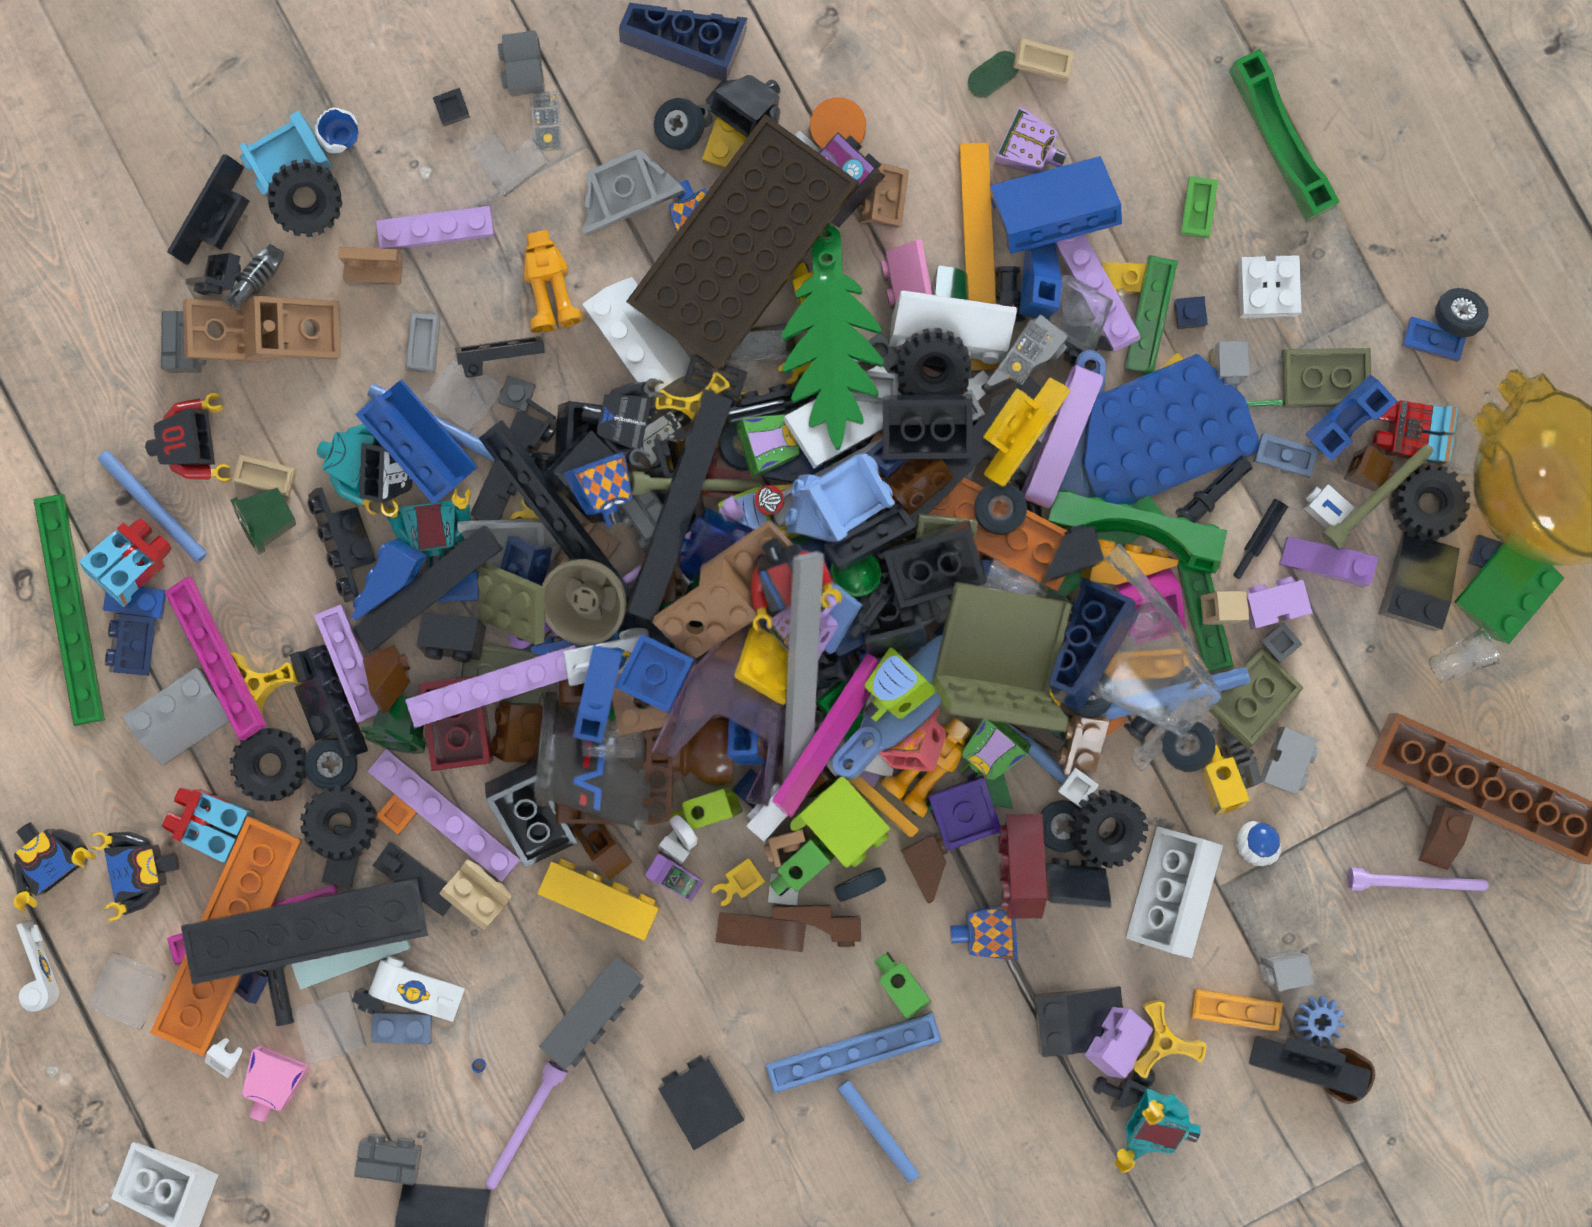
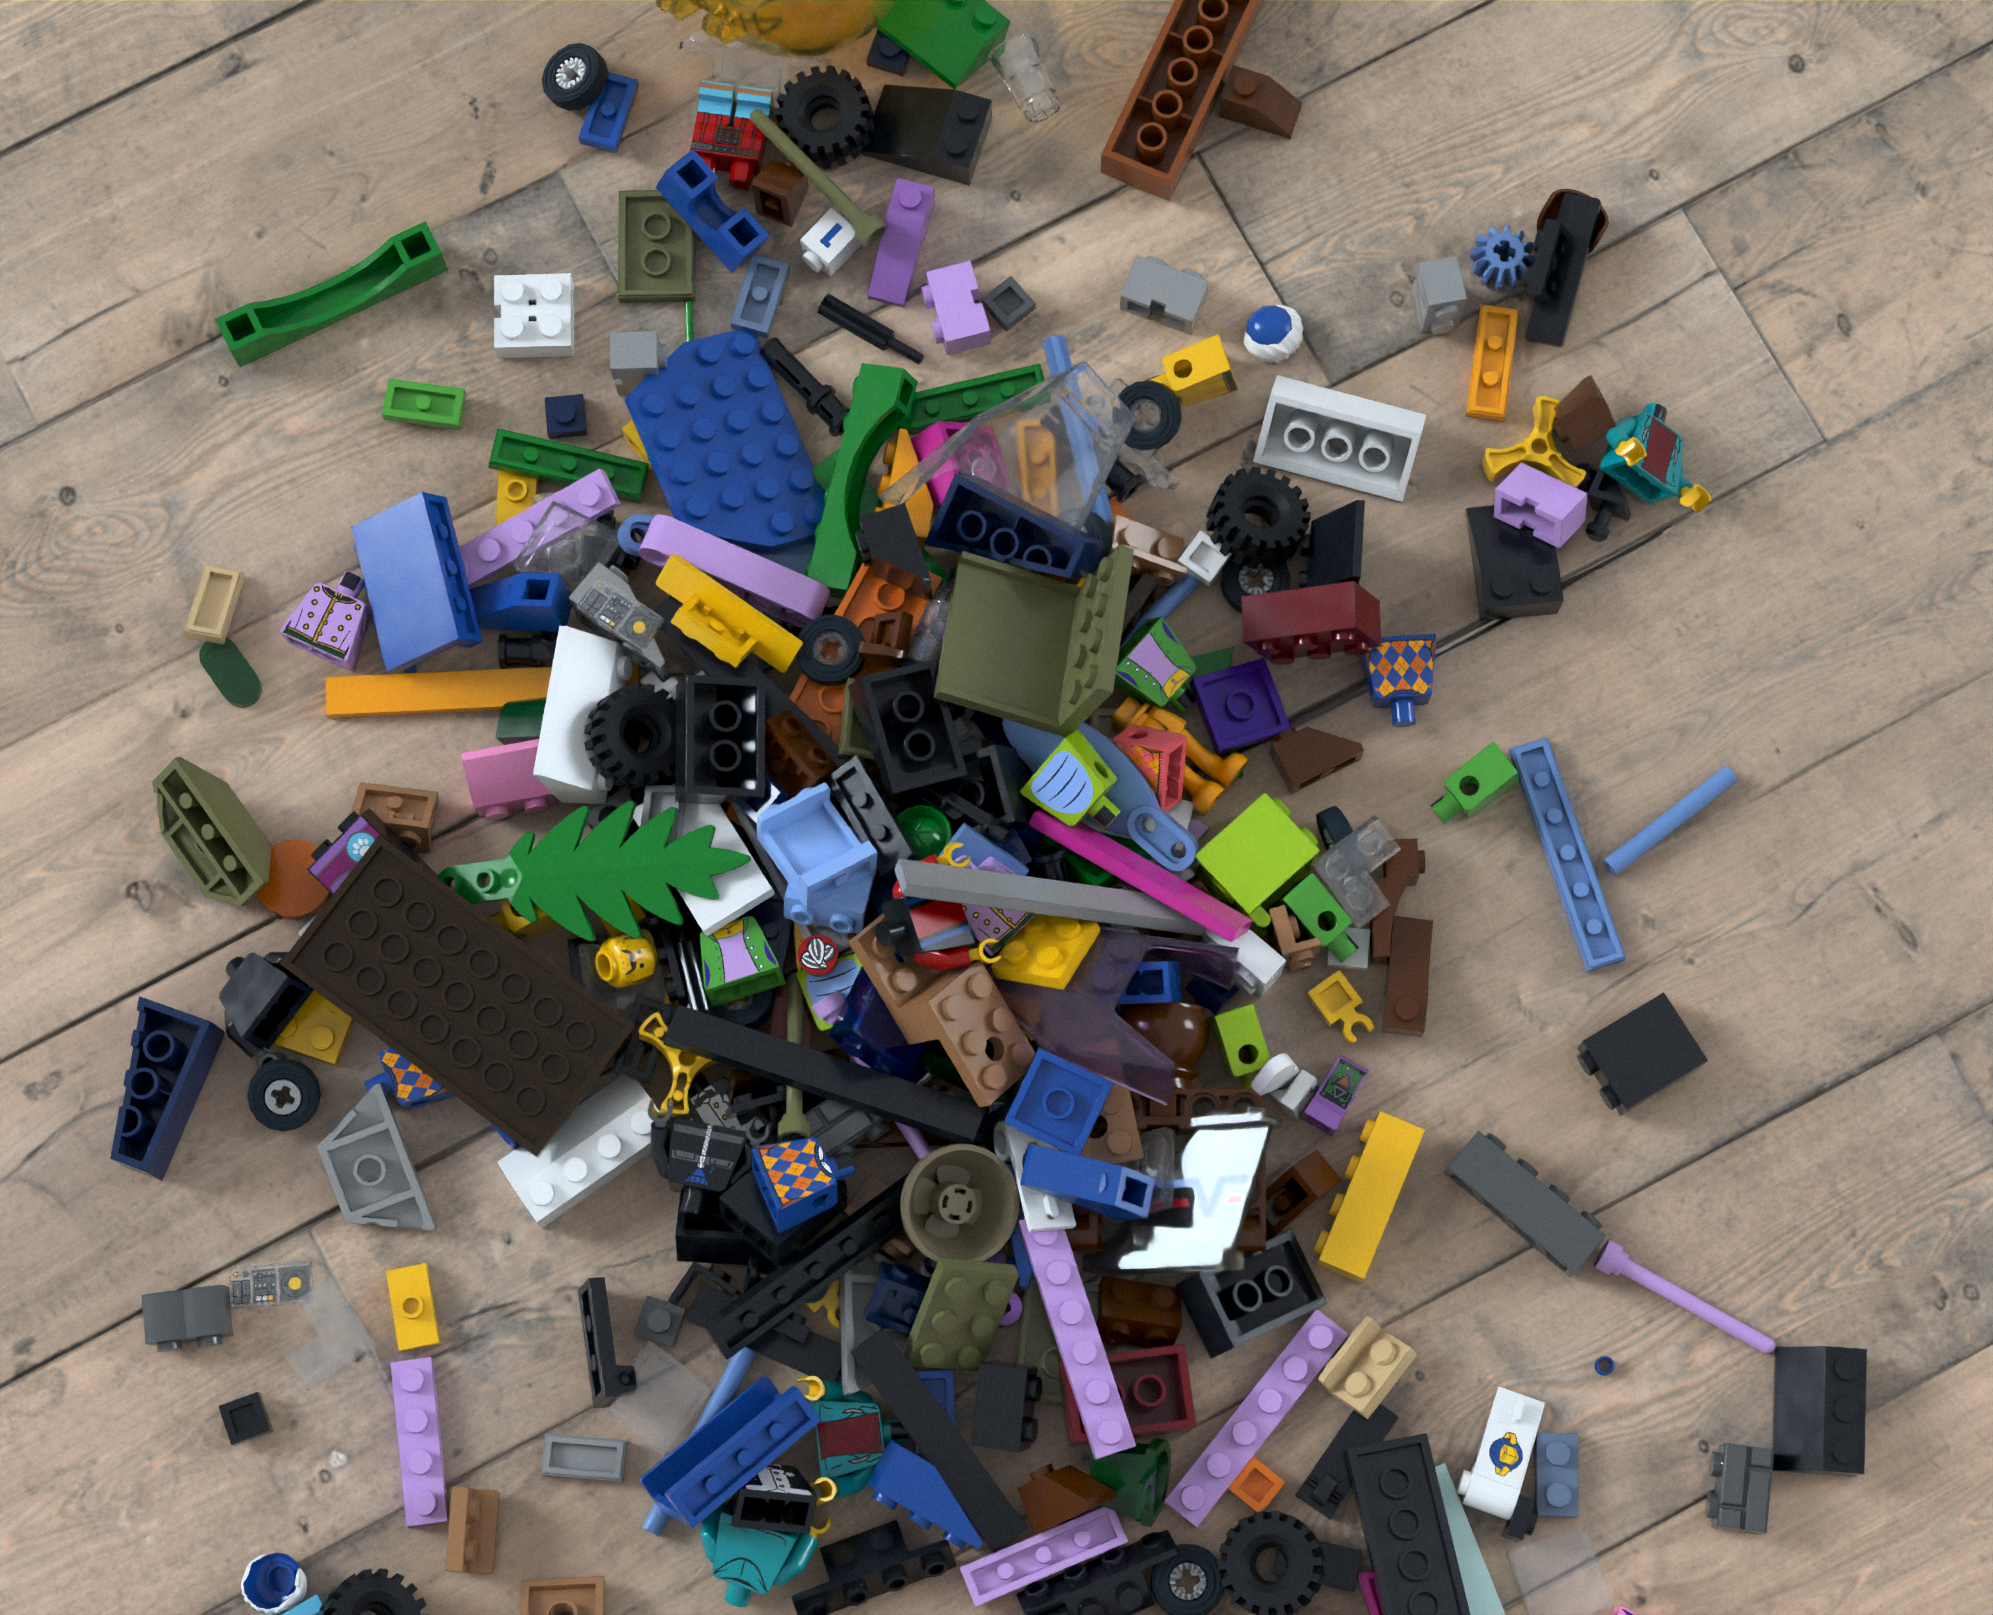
camera: 90 degrees left, 10 degrees down
(523, 220) = (413, 1307): none -> yellow plate
(542, 265) = (476, 1281): light orange piece -> none
(768, 363) = (626, 961): none -> yellow head
(834, 889) = (1347, 870): none -> clear plate
(869, 66) = (211, 833): none -> olive wedge
(884, 806) = (1239, 803): light orange tile -> none
(1007, 550) = (888, 639): none -> reddish brown tile
(1190, 1078) = (1583, 415): none -> reddish brown slope
(1225, 607) = (963, 370): tan brick -> none
(1243, 758) = (1145, 357): dark grey hinge -> none
(1253, 707) = (1089, 327): olive tile -> none
(1359, 879) = (1317, 208): lavender piece -> none

